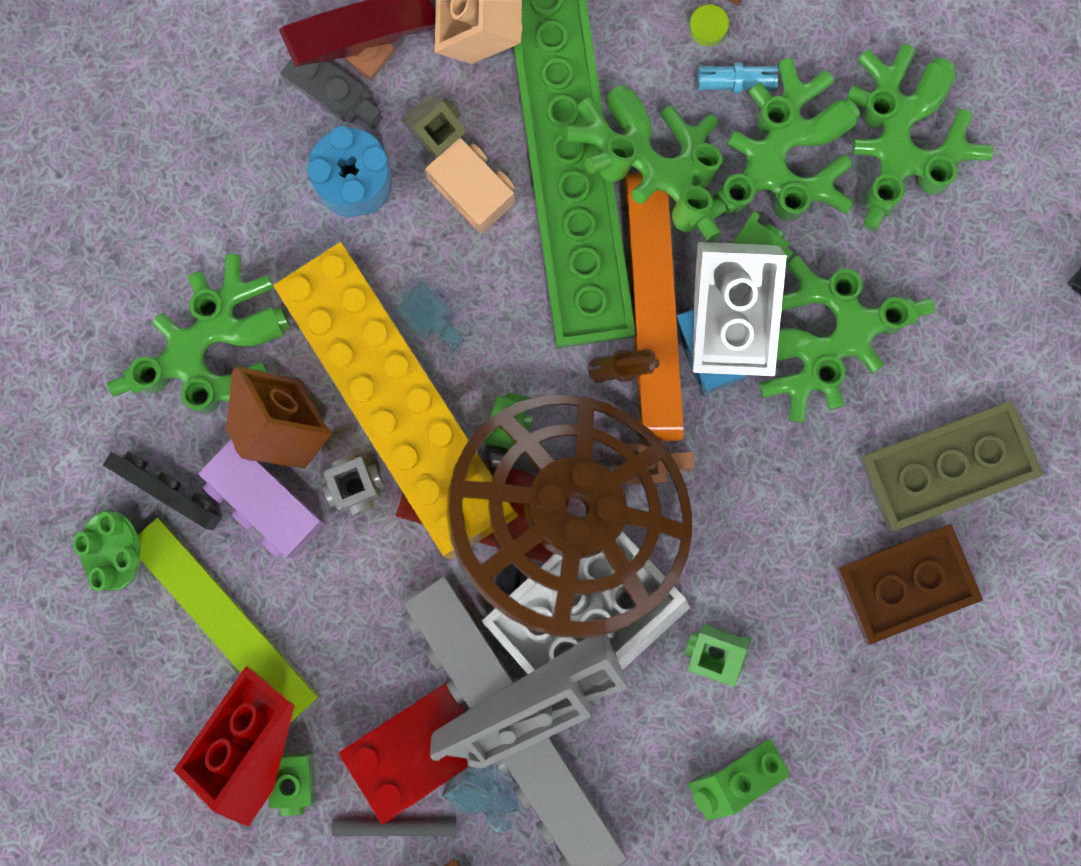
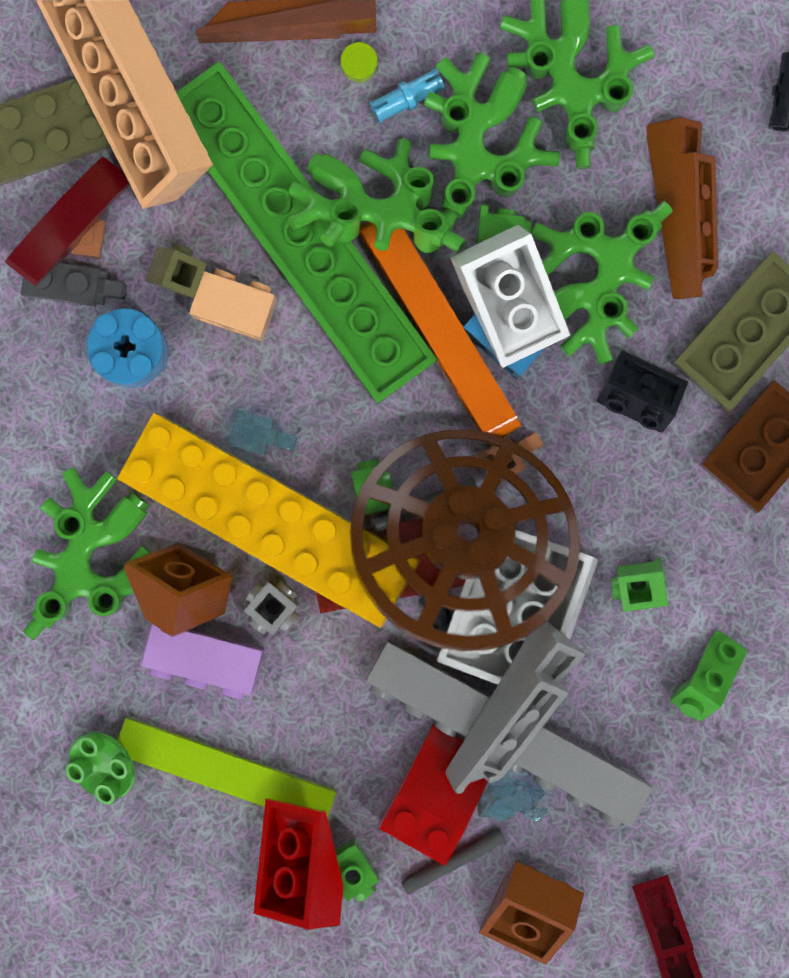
camera: 35 degrees left, 5 degrees up
(164, 489) = (118, 693): pearl dark grey plate -> none
(623, 366) = (441, 391): reddish brown axle -> none
(816, 469) = (642, 392): none -> black bracket
(962, 298) = (688, 185): none -> dark orange wedge

